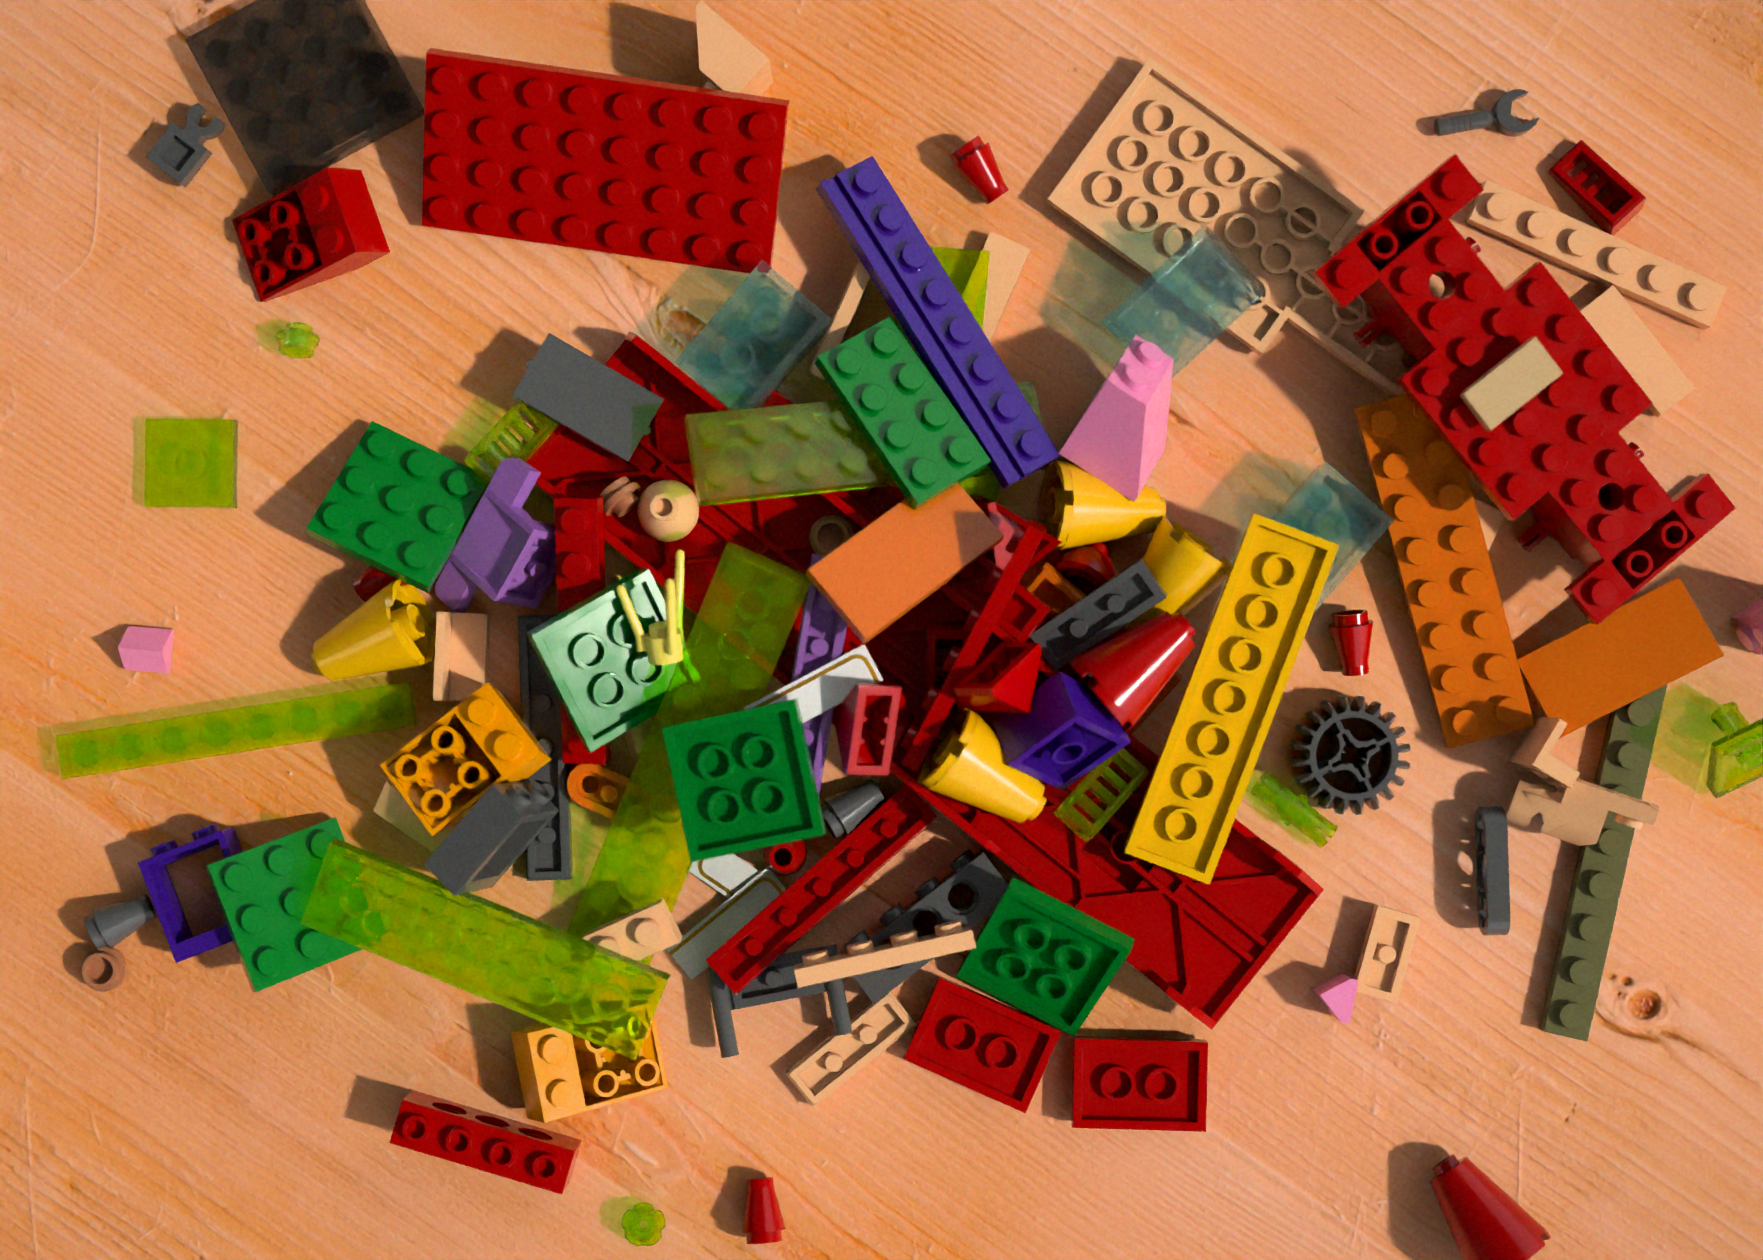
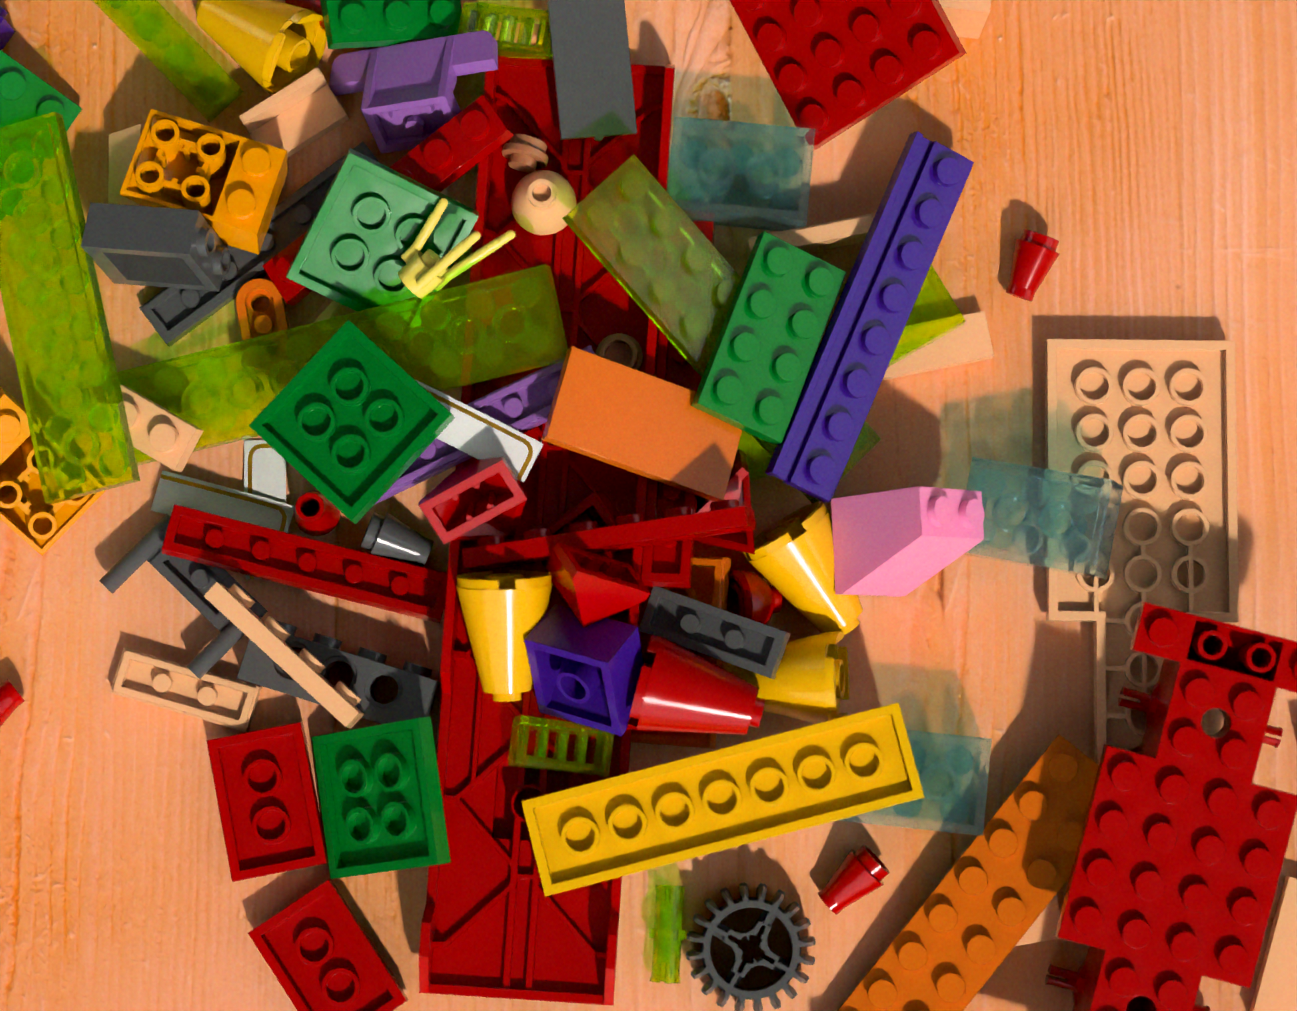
camera: 60 degrees right, 5 degrees down
(1510, 383) = (1172, 844): tan tile -> none

